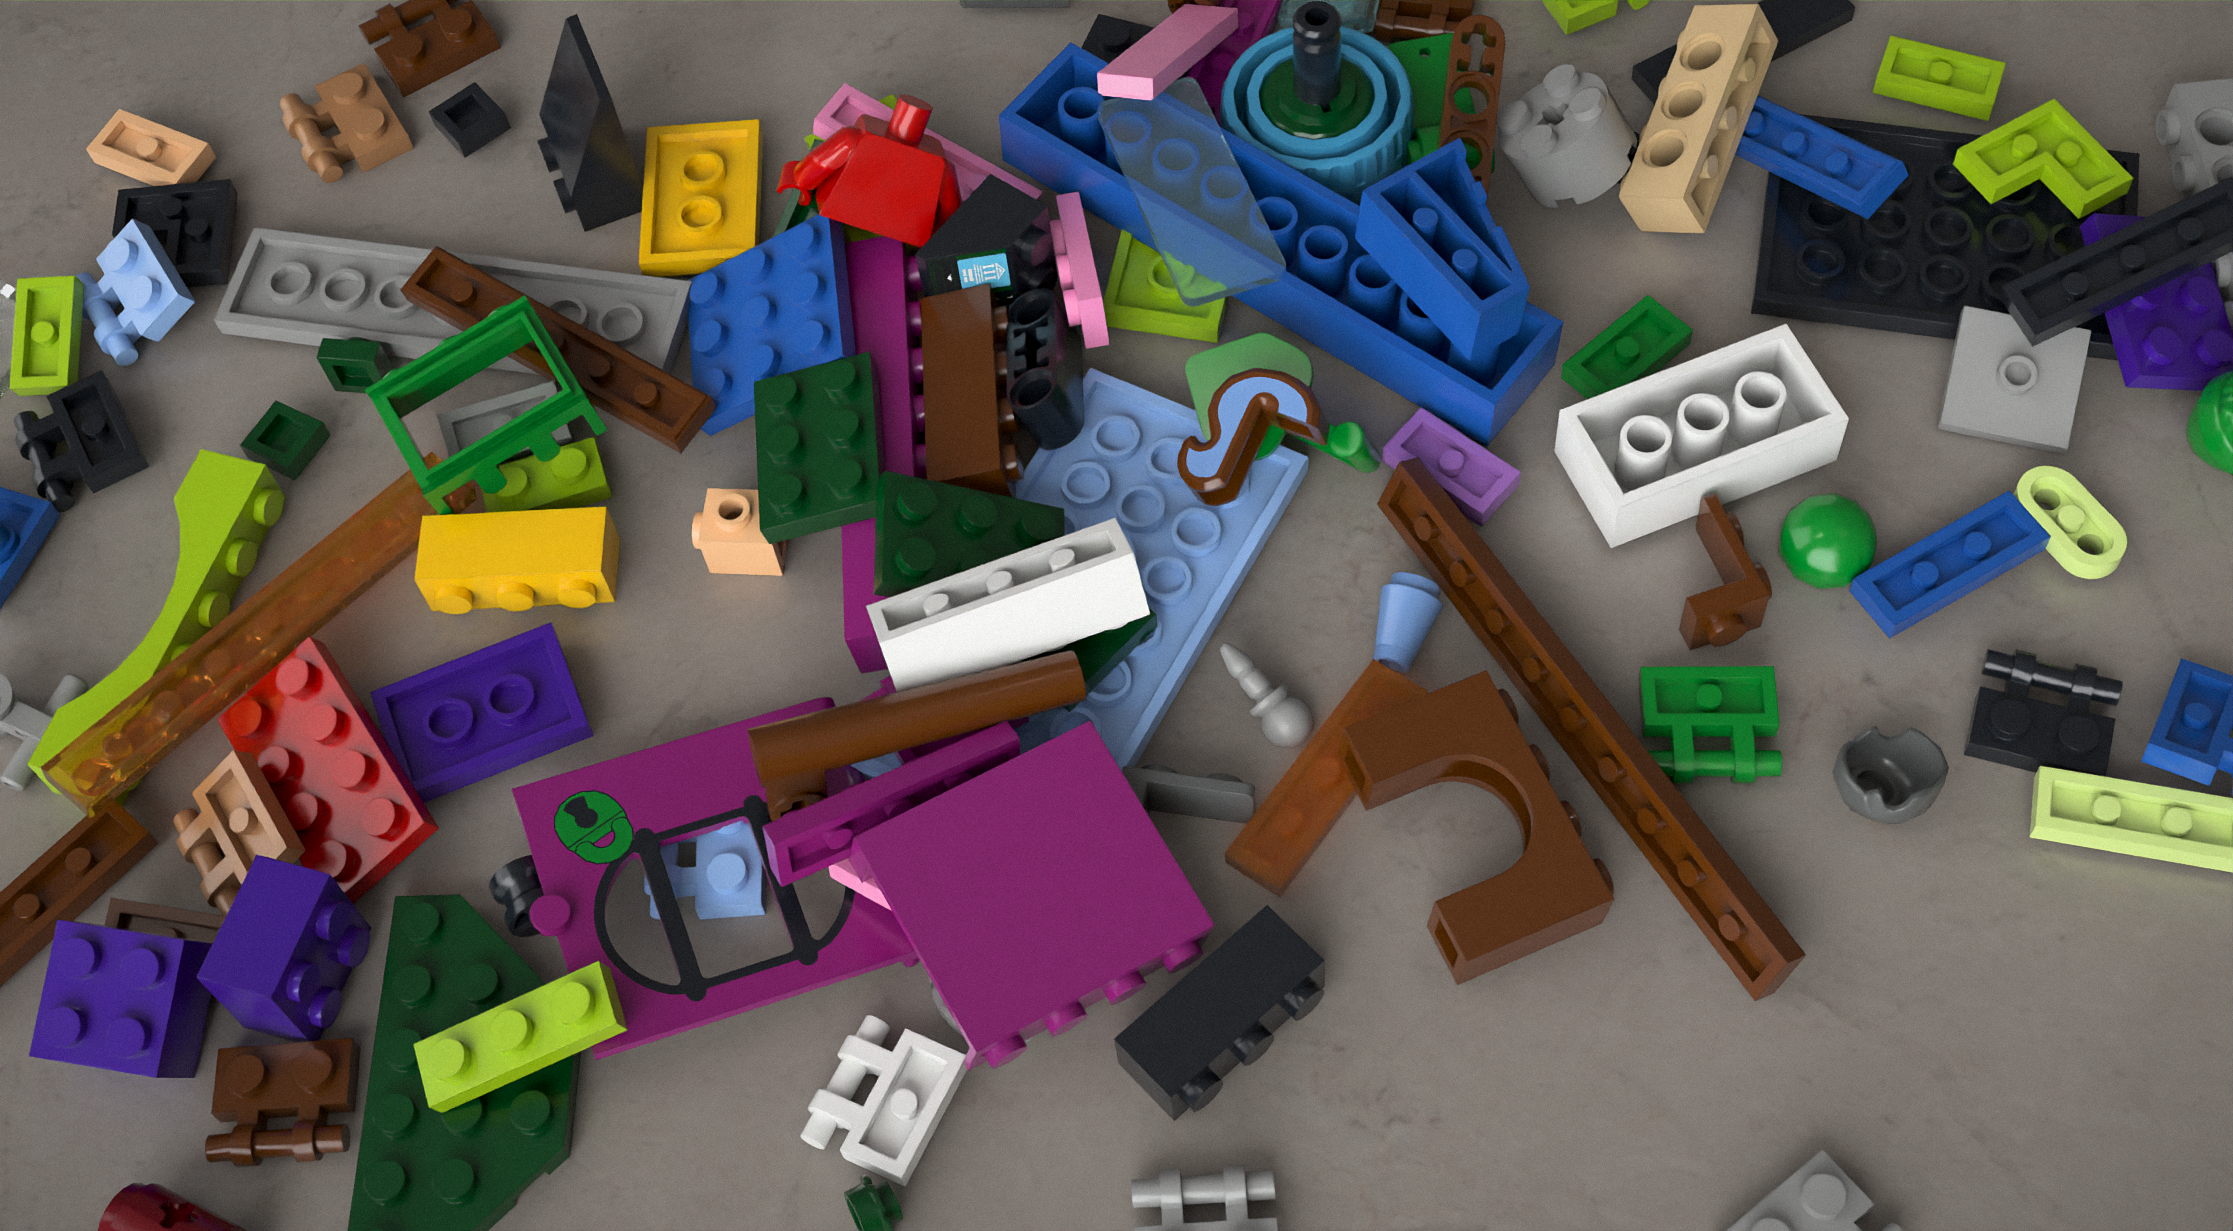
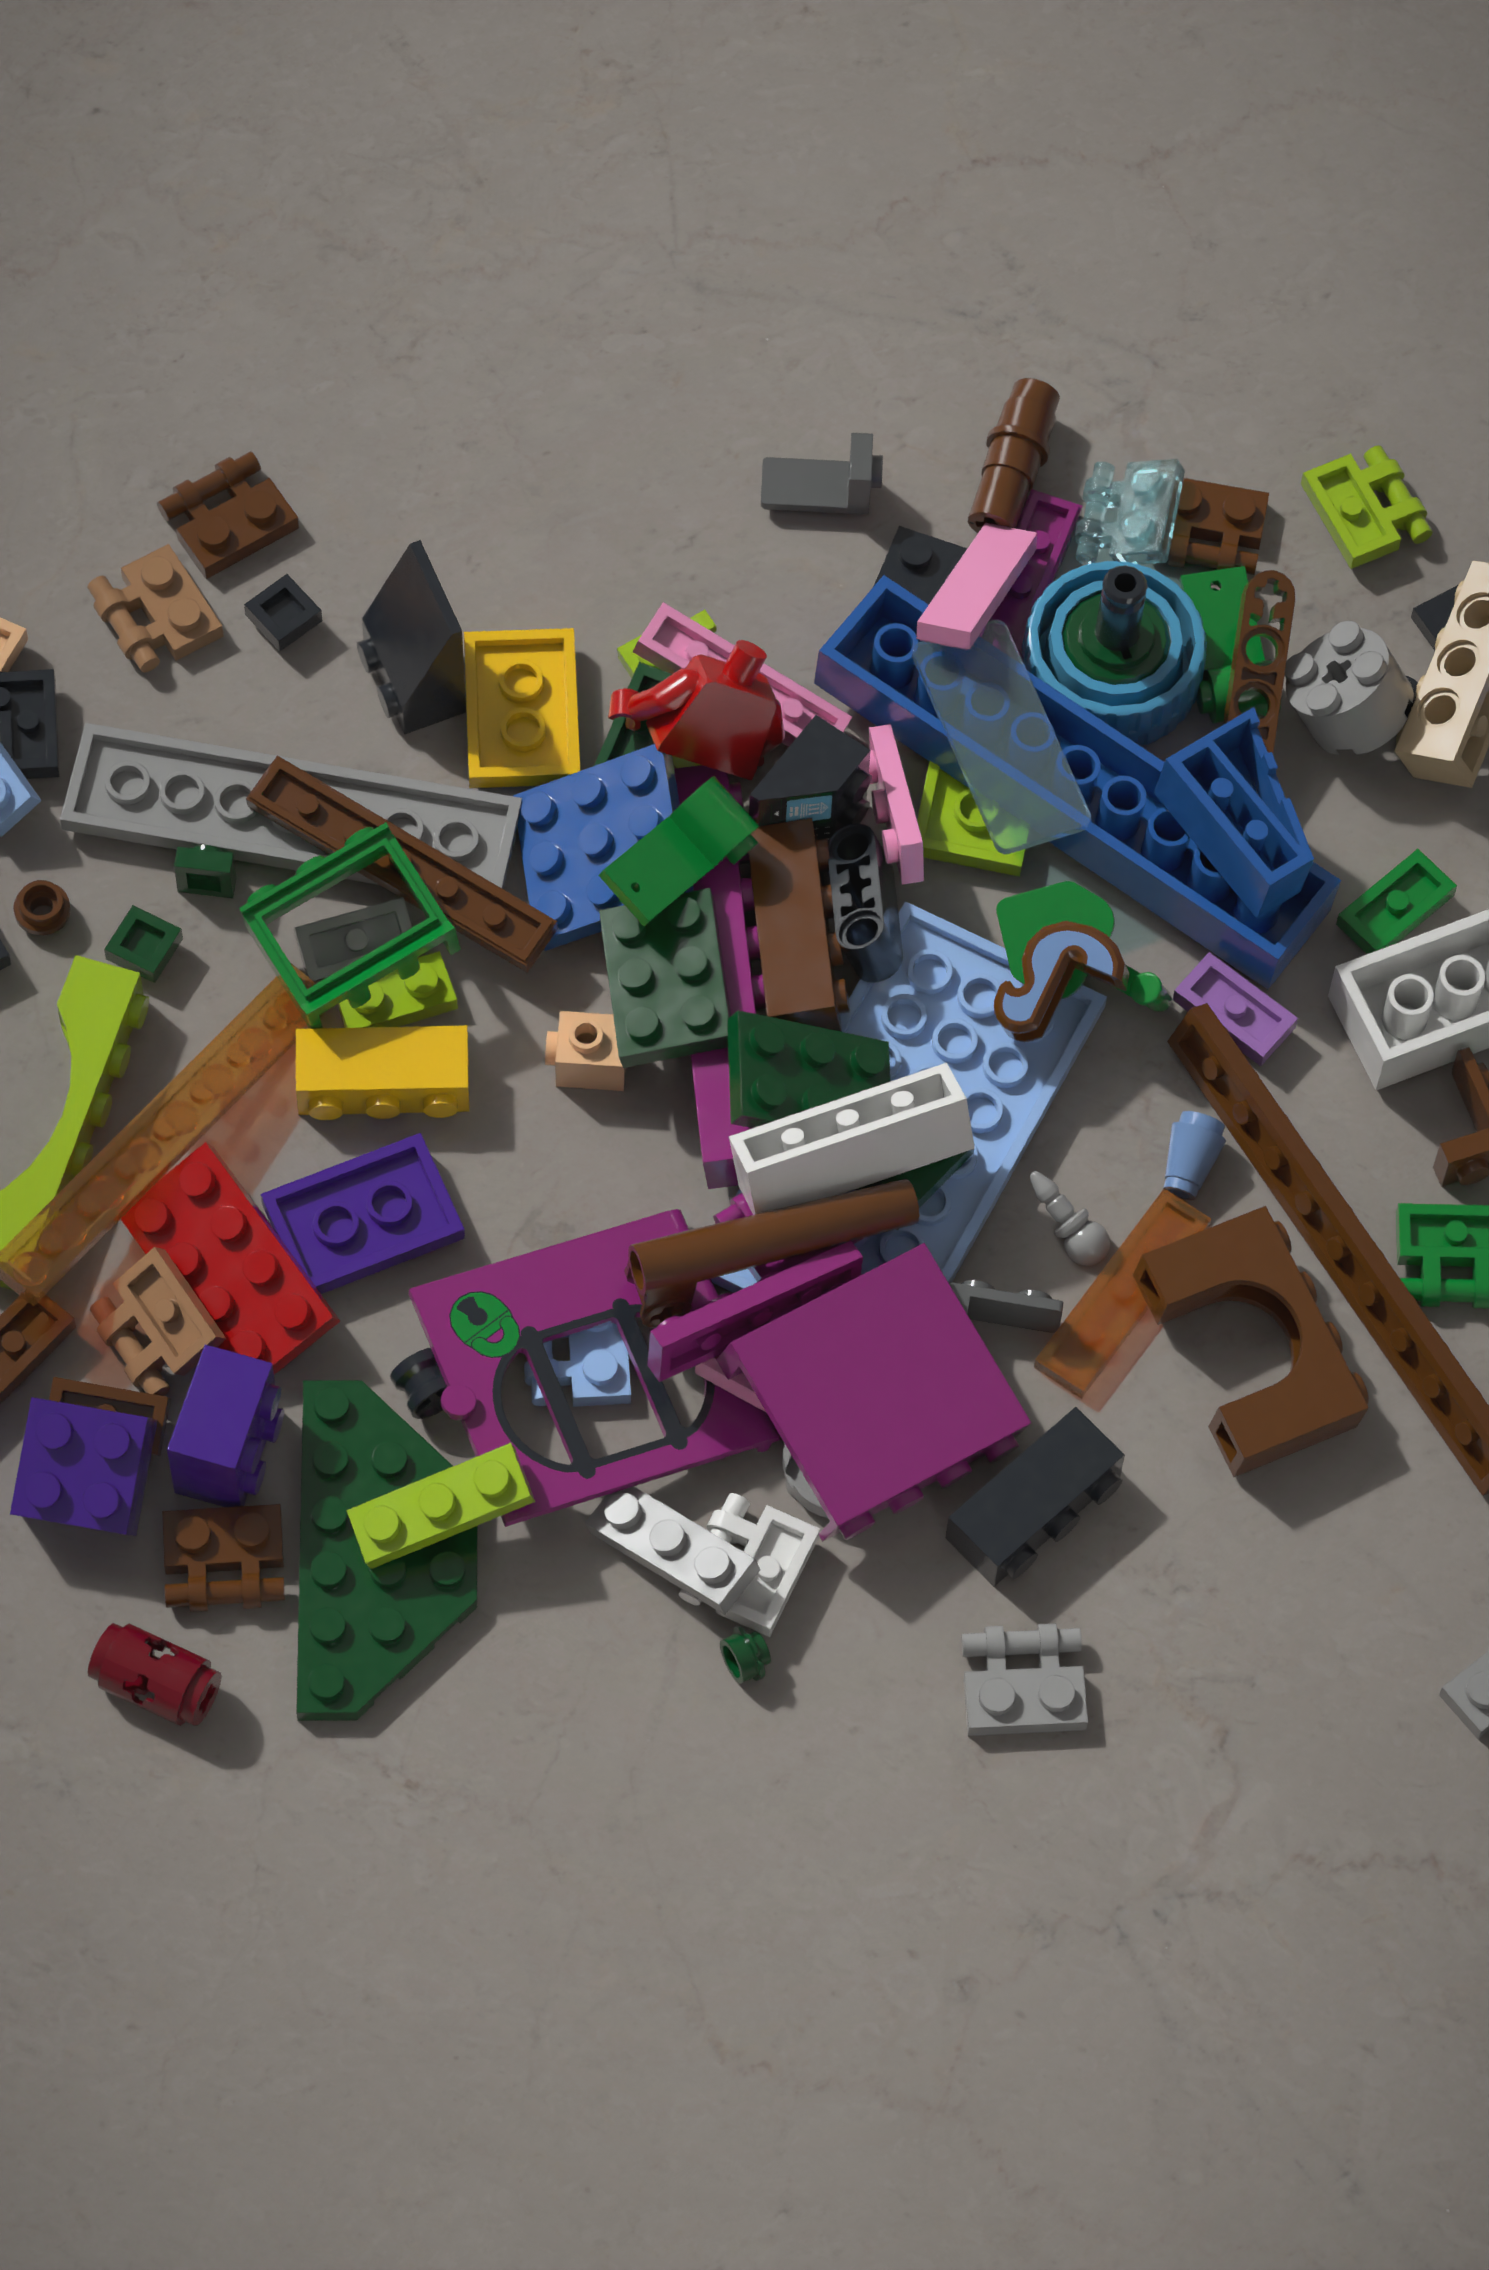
camera: 10 degrees left, 5 degrees up
(187, 408) = (39, 894): none -> reddish brown plate
(794, 1081) = (673, 1547): none -> plate
(855, 303) = (681, 851): none -> green door

